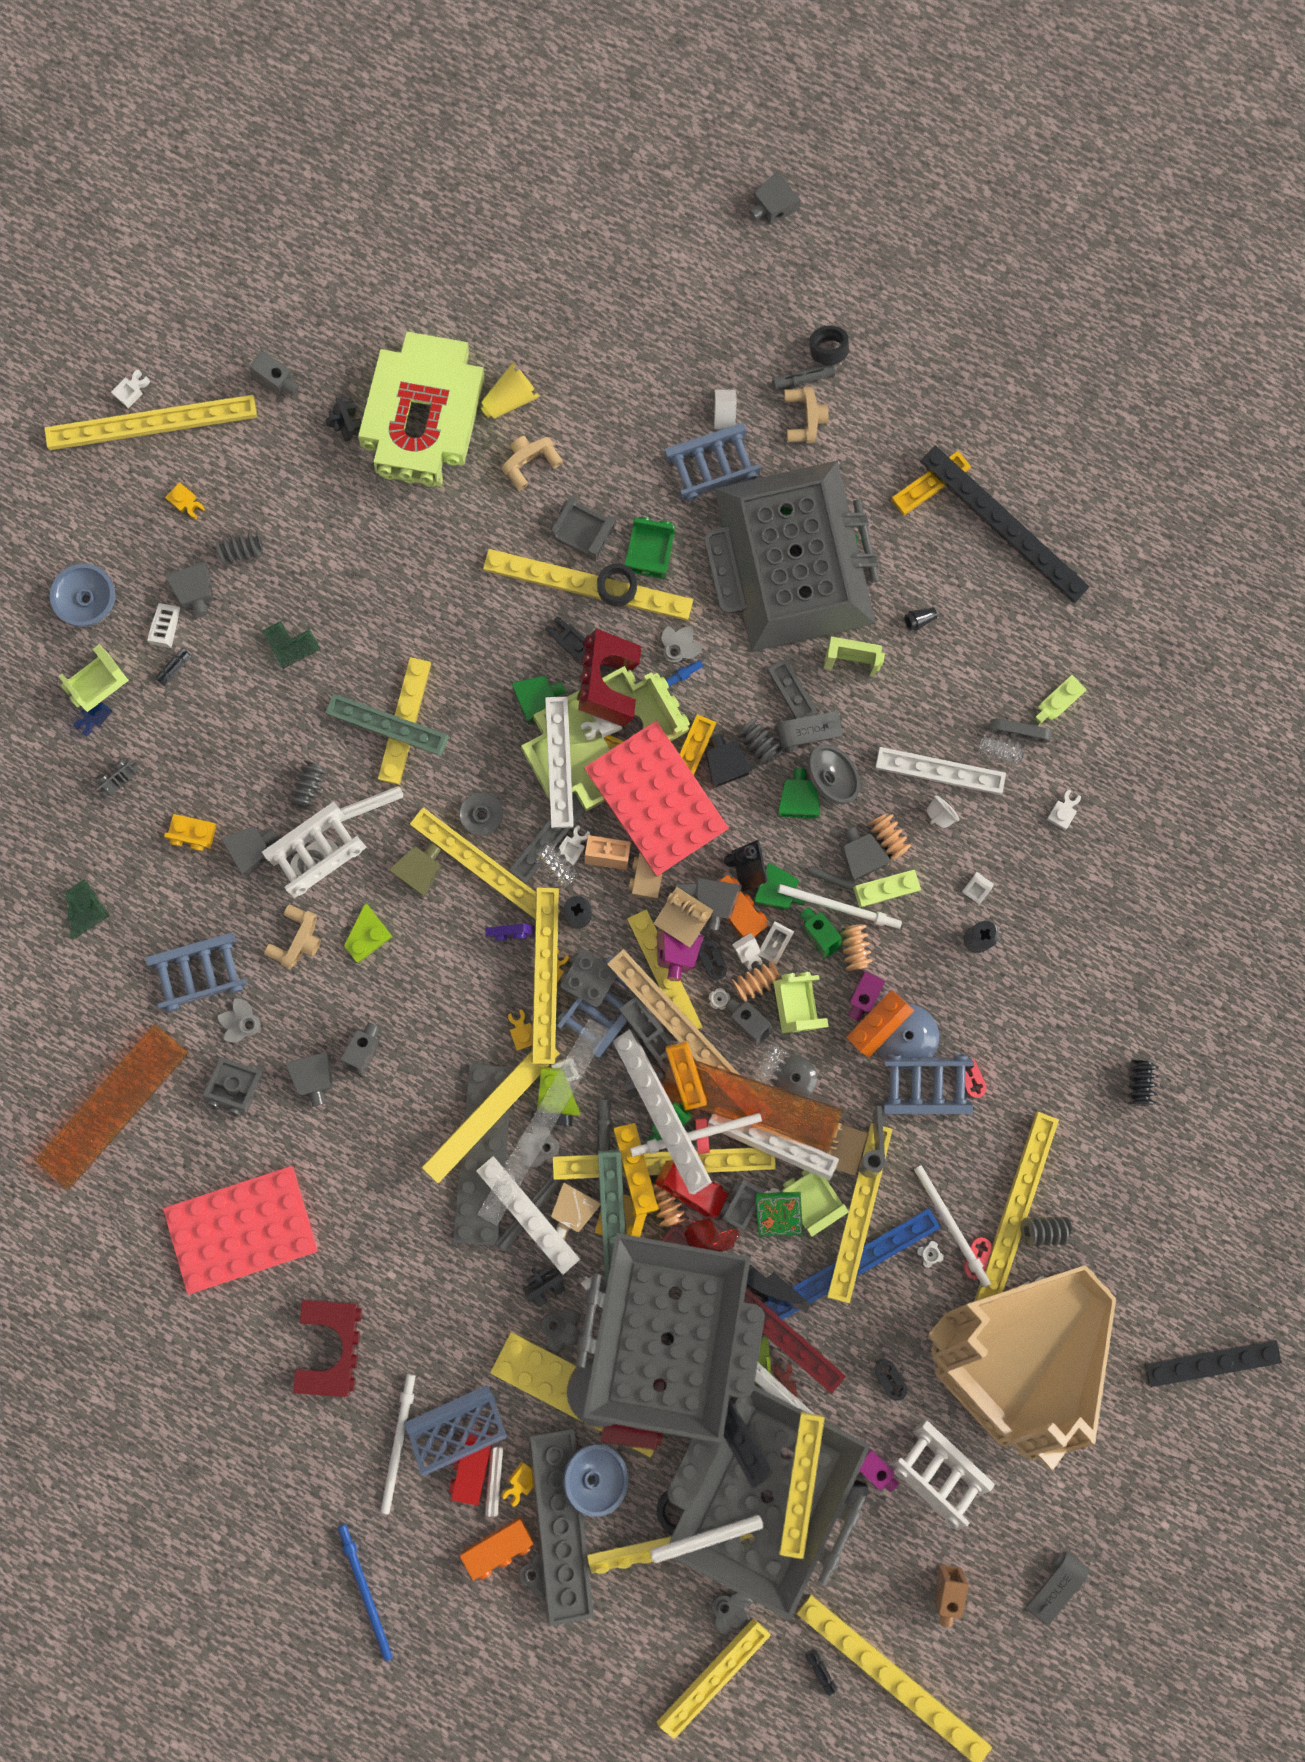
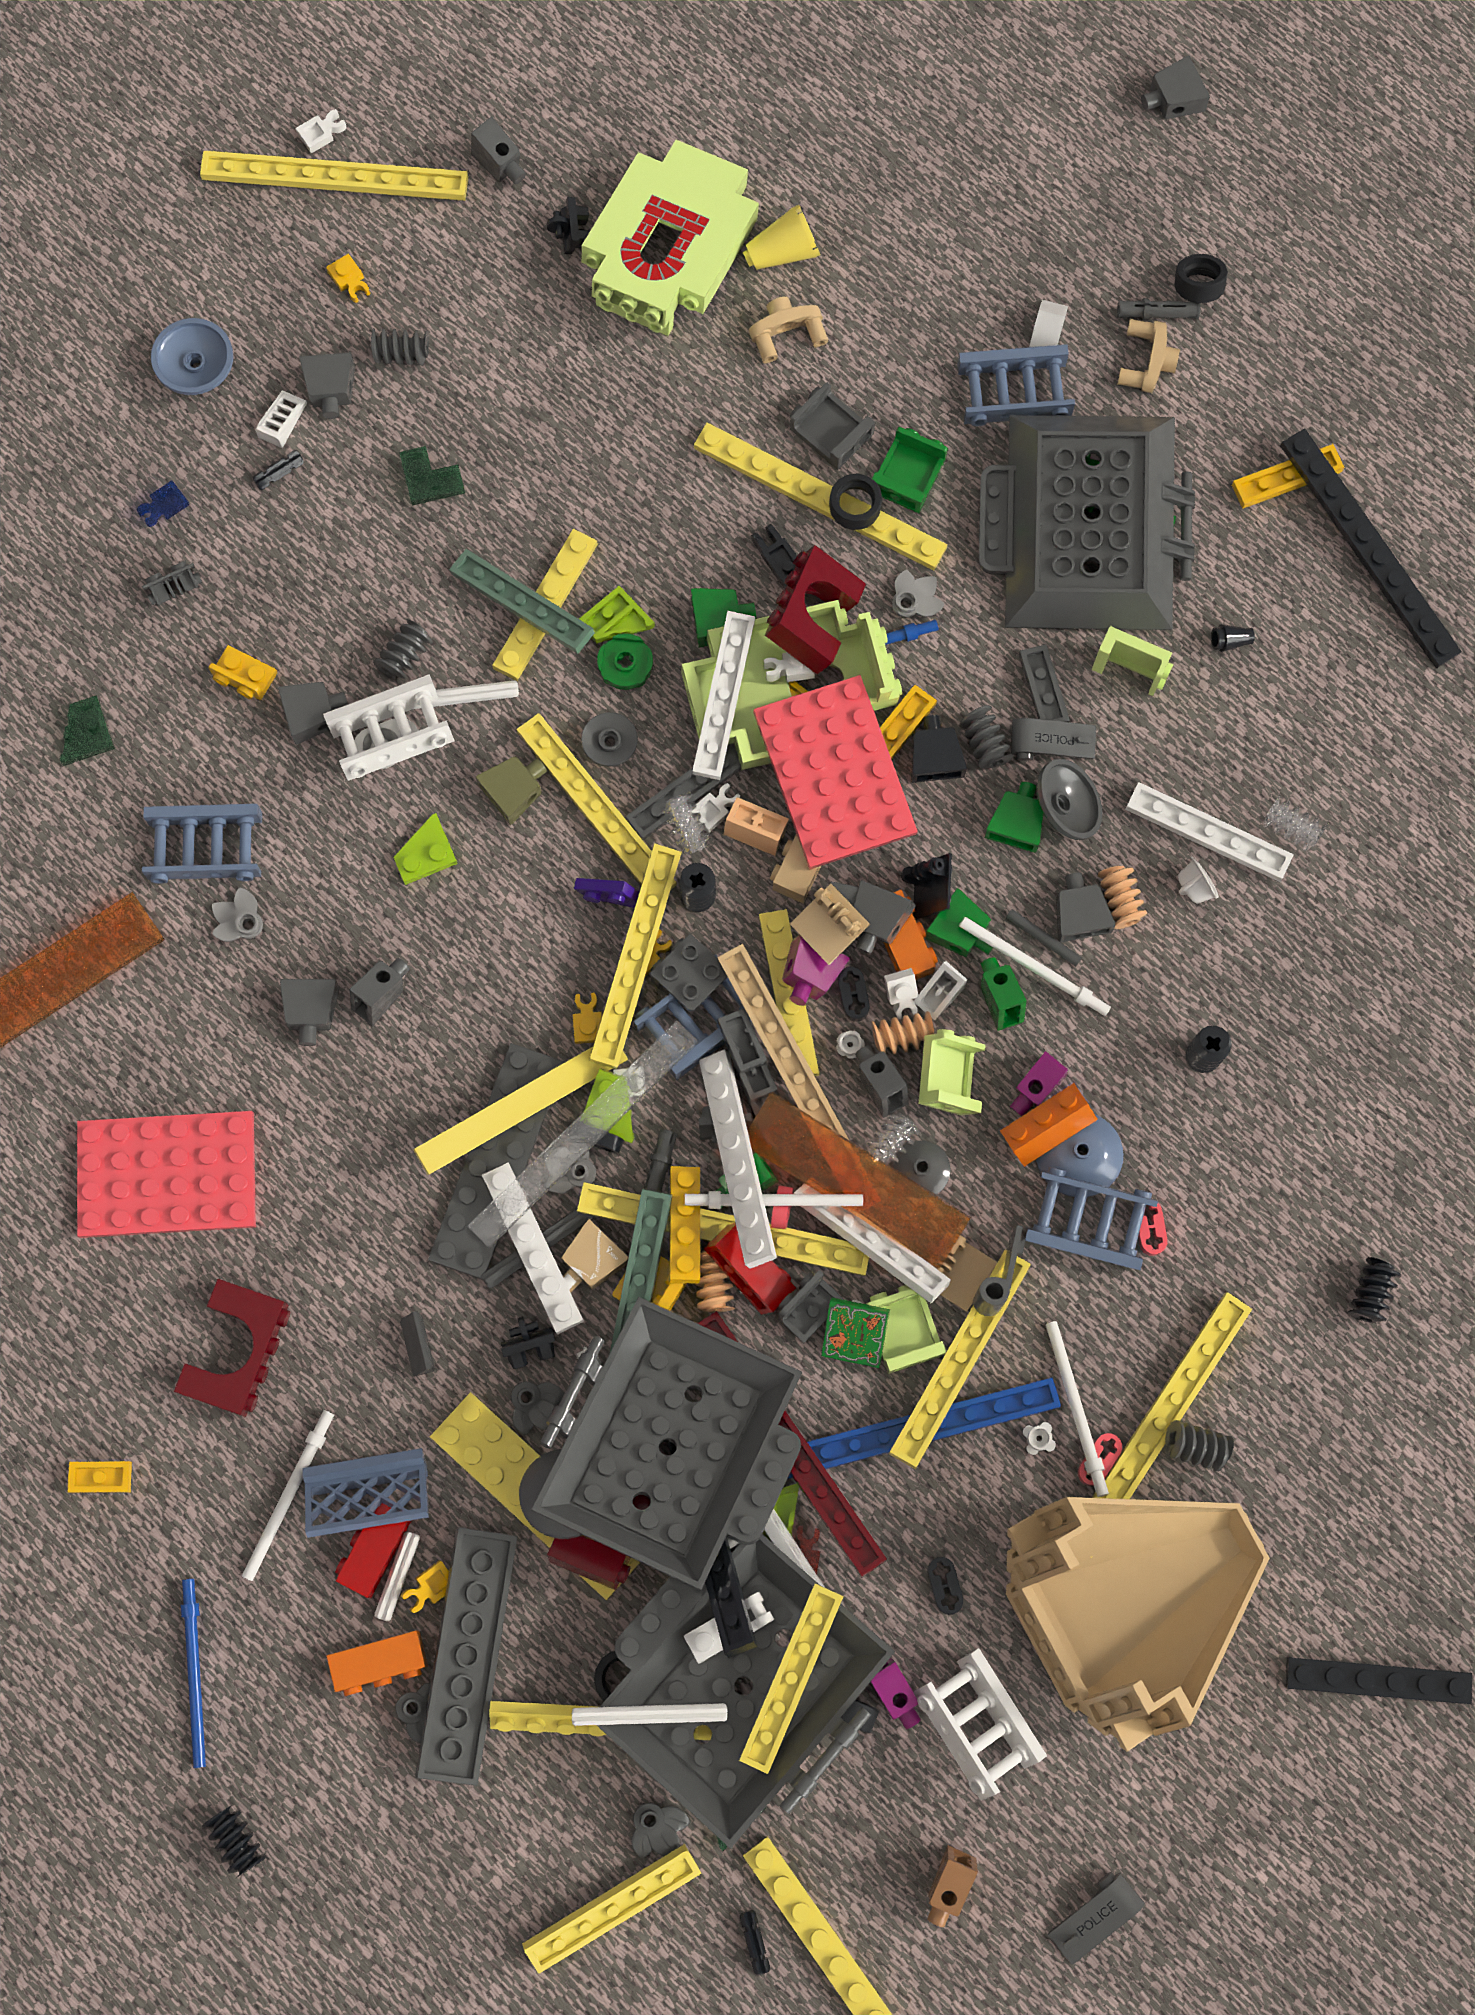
camera: 20 degrees right, 5 degrees down
(94, 681) = (177, 462): yellowish green panel -> none
(232, 1087) = (205, 994): dark grey plate -> none
(255, 1469) = (100, 1477): none -> yellow plate
(303, 942) = (343, 840): tan connector -> none
(430, 1707) = (233, 1841): none -> black piece
(460, 718) = (616, 615): none -> lime wing
(462, 1307) = (417, 1344): none -> dark grey slope
(484, 741) = (631, 676): none -> green plate
(607, 1485) = (545, 1607): sand blue dish -> none
(686, 1075) = (781, 1123): light orange tile -> none
(704, 1235) = (752, 1331): clear red brick -> none
(731, 1472) = (706, 1640): none -> white plate
(774, 1290) = (823, 1426): black slope -> none
(855, 947) = (1041, 1023): light nougat piece -> none
(887, 888) = (1101, 960): yellowish green plate -> none
(978, 888) = (1220, 991): white slope -> none
(1020, 730) = (1326, 807): dark grey beam -> none
(1060, 700) = (1387, 783): yellowish green hinge -> none
(1063, 812) = (1356, 924): white plate -> none

